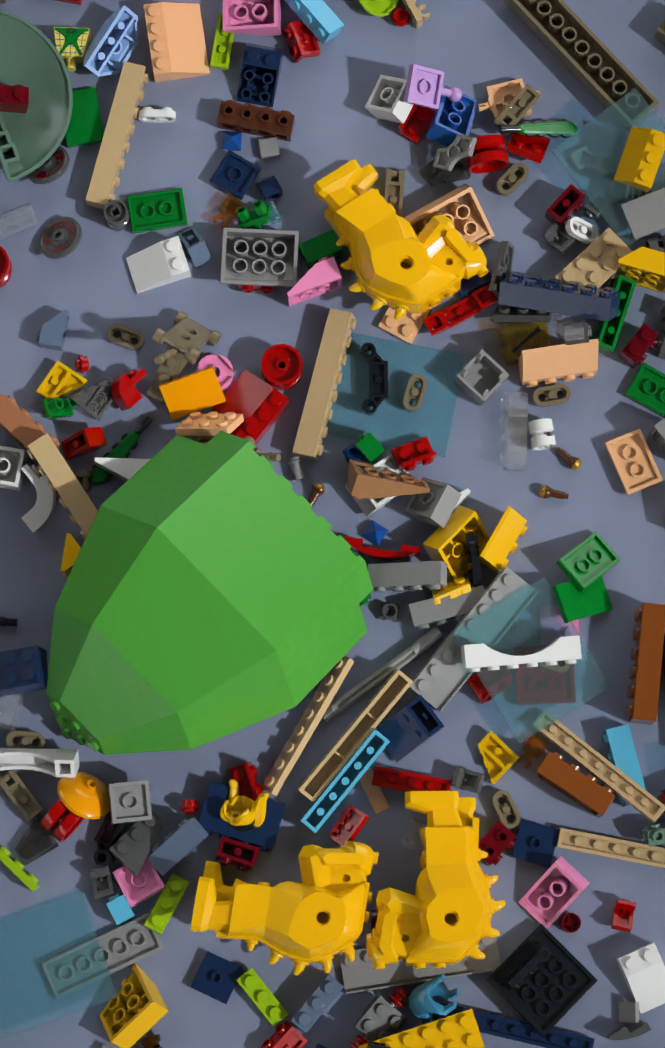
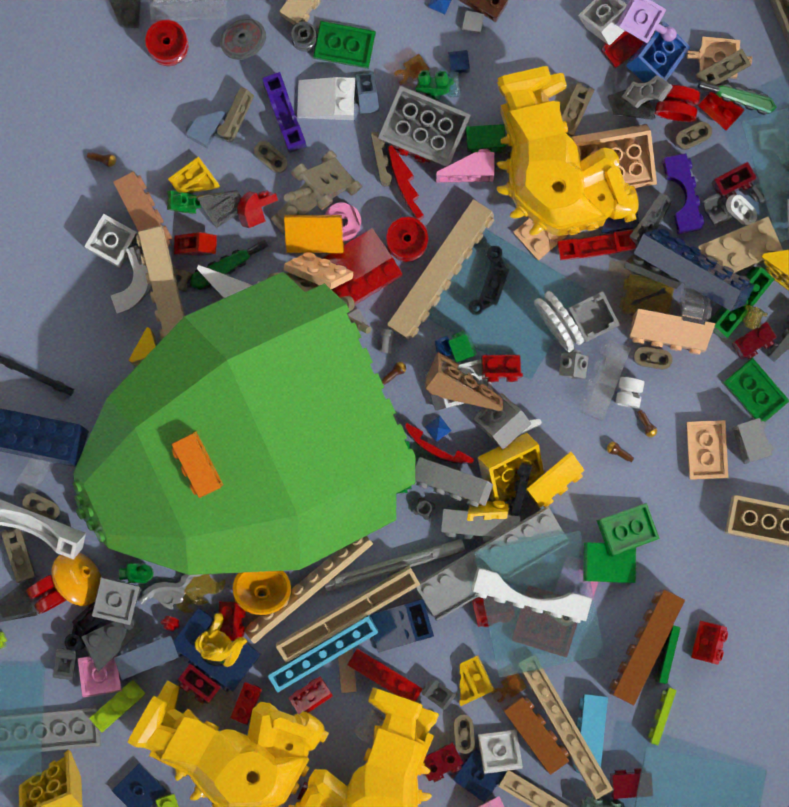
camera: 20 degrees right, 5 degrees up
(79, 309) = (236, 114): none -> dark tan plate
(82, 364) = (220, 168): red plate -> none
(120, 909) = (72, 695): medium azure brick -> none
(123, 291) = (284, 112): none -> dark purple arch
(140, 769) = (136, 573): none -> green hips
(163, 637) = (196, 465): none -> orange brick
(195, 770) = (186, 592): none -> piece
(230, 303) = (381, 160): none -> dark tan plate
(235, 175) = (431, 37): dark blue plate -> none
(256, 311) = (403, 177): none -> red slope
(268, 733) = (272, 584): none -> light orange dish
(289, 855) = (245, 703): none -> red bracket
(414, 393) = (523, 309): dark tan plate -> none
(452, 390) = (559, 321): none -> white piece
(480, 427) = (573, 365): none -> light grey brick
(509, 215) = (678, 170): none -> dark purple arch
(546, 813) = (500, 751): none -> white plate
(630, 322) = (753, 317): none -> clear yellow brick

